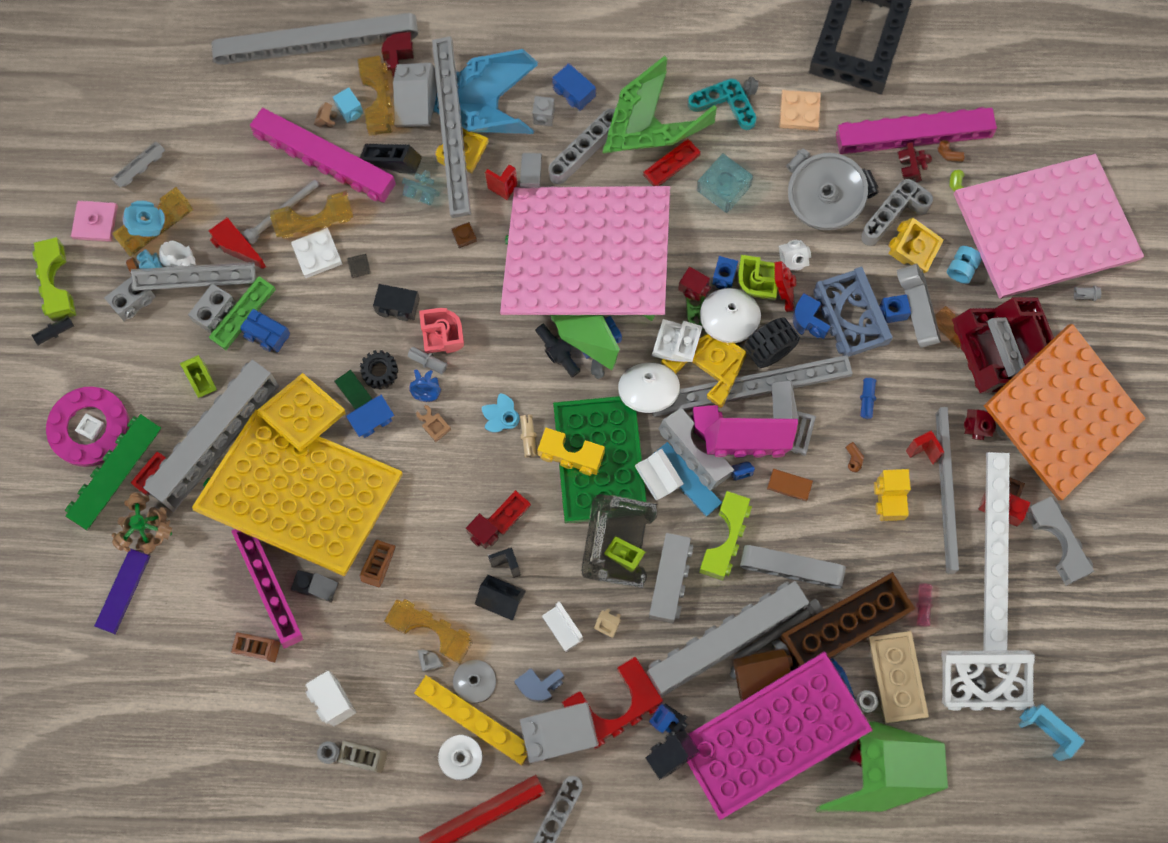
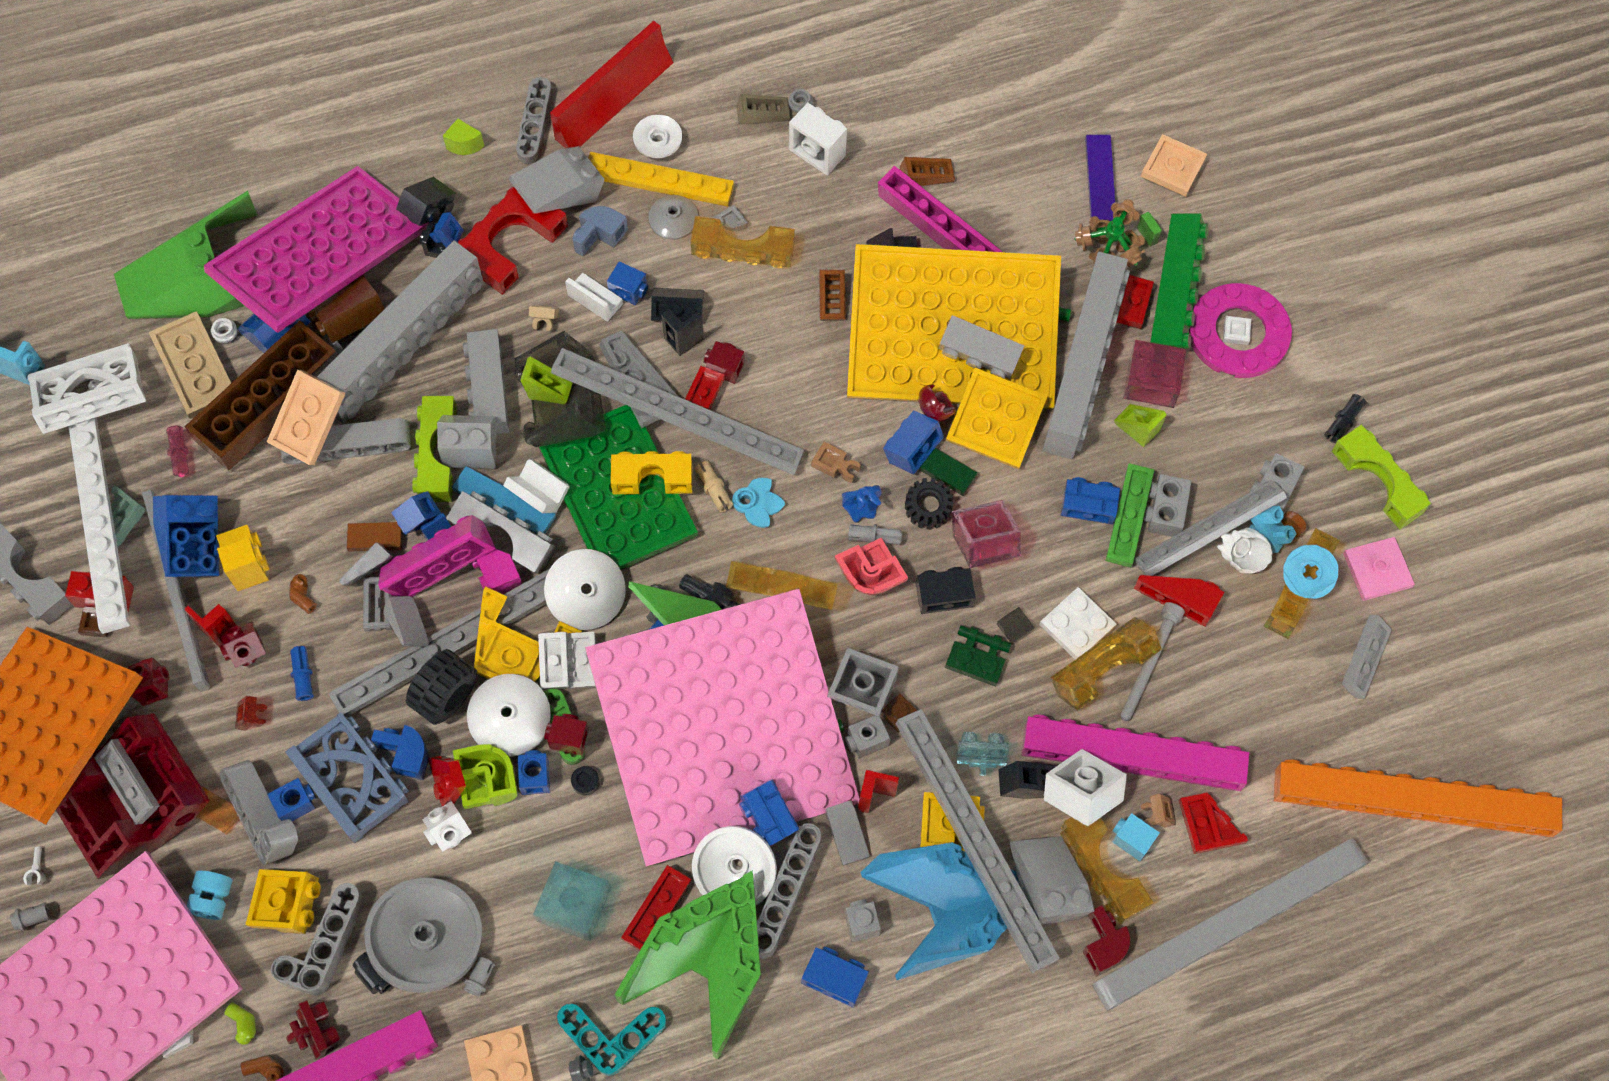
camera: 155 degrees right, 5 degrees down
(59, 580) = (1173, 165): none -> light nougat plate
(108, 528) = (1149, 228): none -> bright green tile
(160, 69) = (1418, 799): none -> orange brick
(169, 408) = (1154, 373): none -> clear pink brick
(288, 460) = (980, 347): none -> light grey brick
(298, 98) = (1208, 825): none -> red wing
(340, 434) = (935, 404): none -> dark red hair
(350, 325) = (986, 533): none -> clear pink brick
(367, 130) = (1084, 787): none -> white brick
(398, 250) = (975, 662): none -> dark green plate
(481, 251) = (863, 682): none -> light grey slope
(487, 328) = (773, 581): none -> clear yellow arch
(492, 223) = (867, 736): none -> light grey brick
(533, 626) = (628, 283): none -> blue brick
(536, 494) = (677, 411): none -> light grey plate
(553, 537) = (628, 360): none -> light grey wing
(578, 187) = (768, 812): none -> blue brick
(613, 168) = (715, 857): none -> white dish
(623, 815) = (463, 139): none -> lime brick
(691, 259) = (585, 780): none -> black tile
(699, 528) = (467, 441): none -> light grey slope
(754, 483) = (415, 512): none -> brick
(800, 458) = (372, 560): none -> flat silver slope
(819, 576) = (306, 417): none -> light nougat plate
(905, 427) = (242, 645): none -> dark red brick
(913, 379) = (246, 713): none -> clear red tile
(930, 525) = (187, 534): none -> blue slope
(974, 565) = (125, 513): none -> sand green wing
(1080, 322) = (36, 867): none -> white hand

